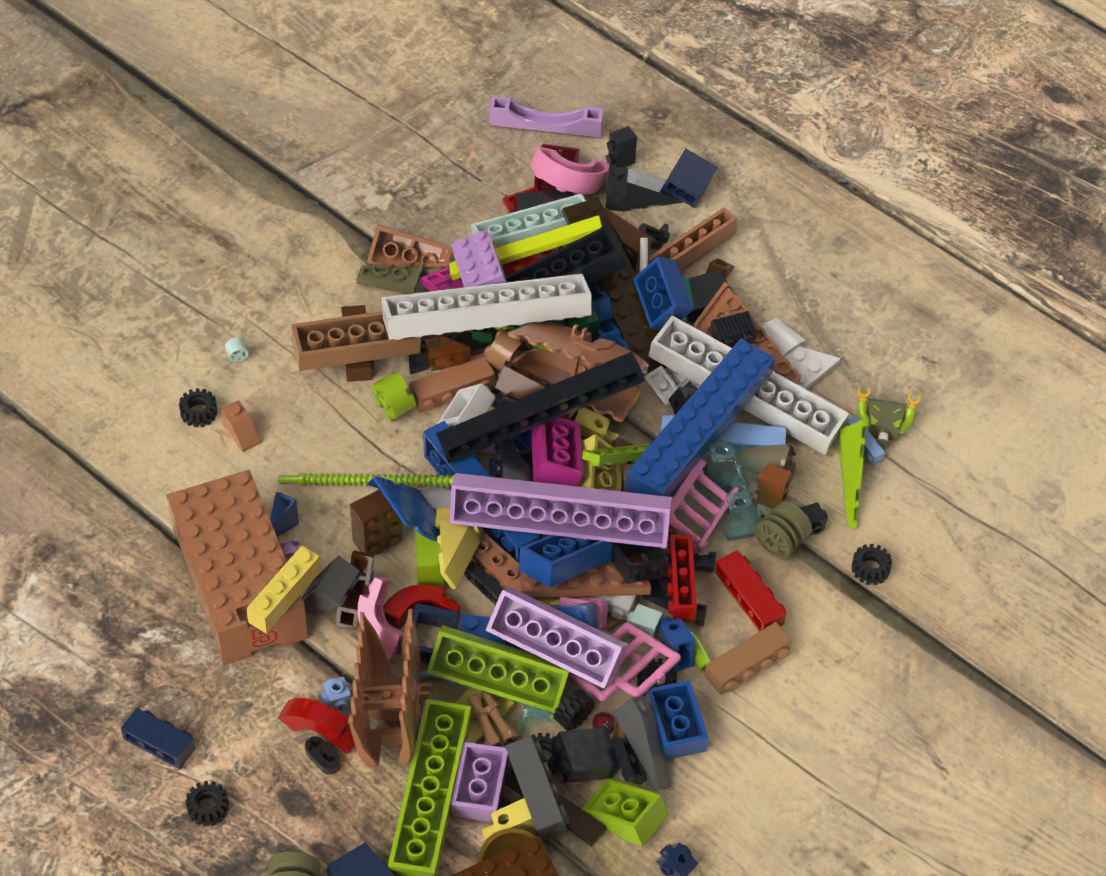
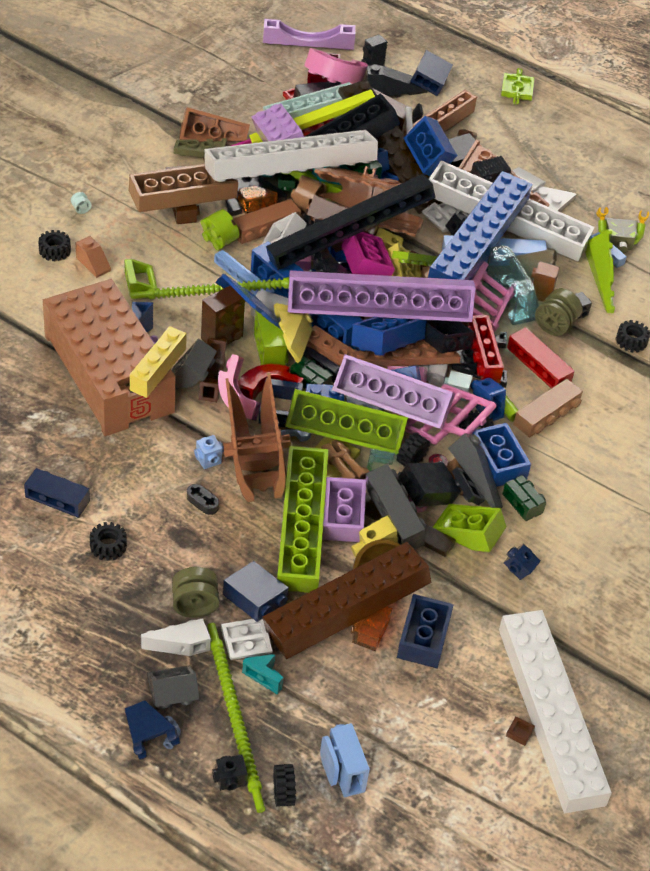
camera: 10 degrees left, 5 degrees down
(285, 441) = (134, 267): none -> lime tile
(318, 717) = (199, 467): red arch -> none
(409, 451) = (236, 269): none -> light blue piece
(472, 598) = (311, 372): none -> dark green brick
(697, 777) = (524, 497): none -> dark green brick
(796, 198) = (517, 86): none -> lime plate

